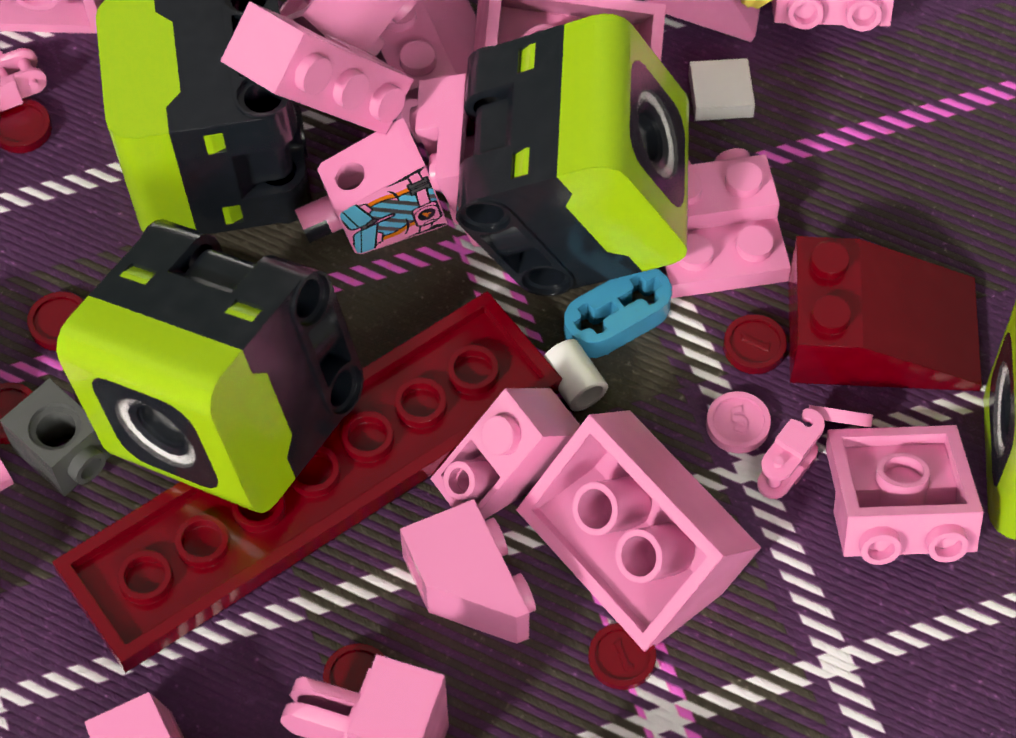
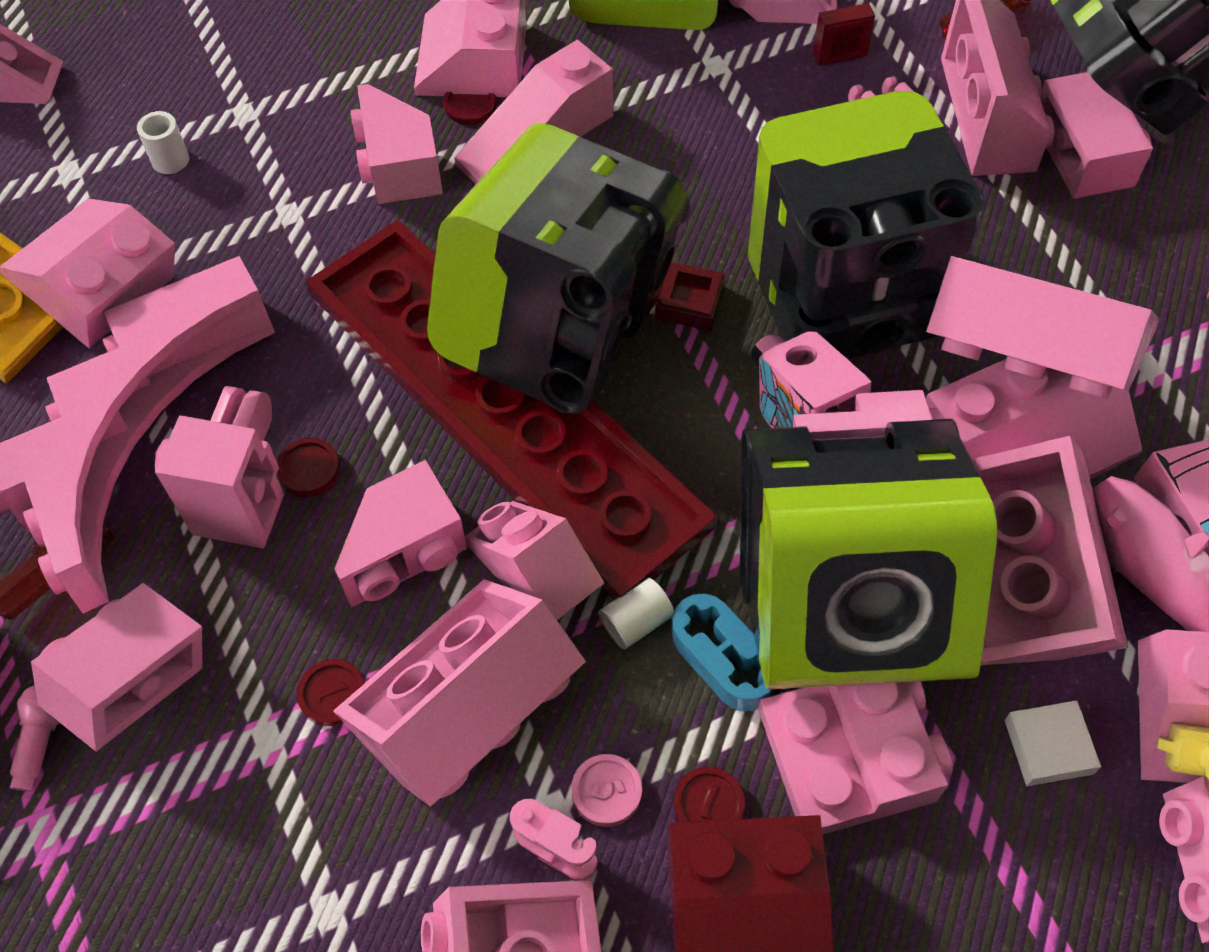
camera: 85 degrees right, 0 degrees up
(316, 69) = (843, 227): bright pink arch -> none
(844, 416) = (610, 894): bright pink piece -> none

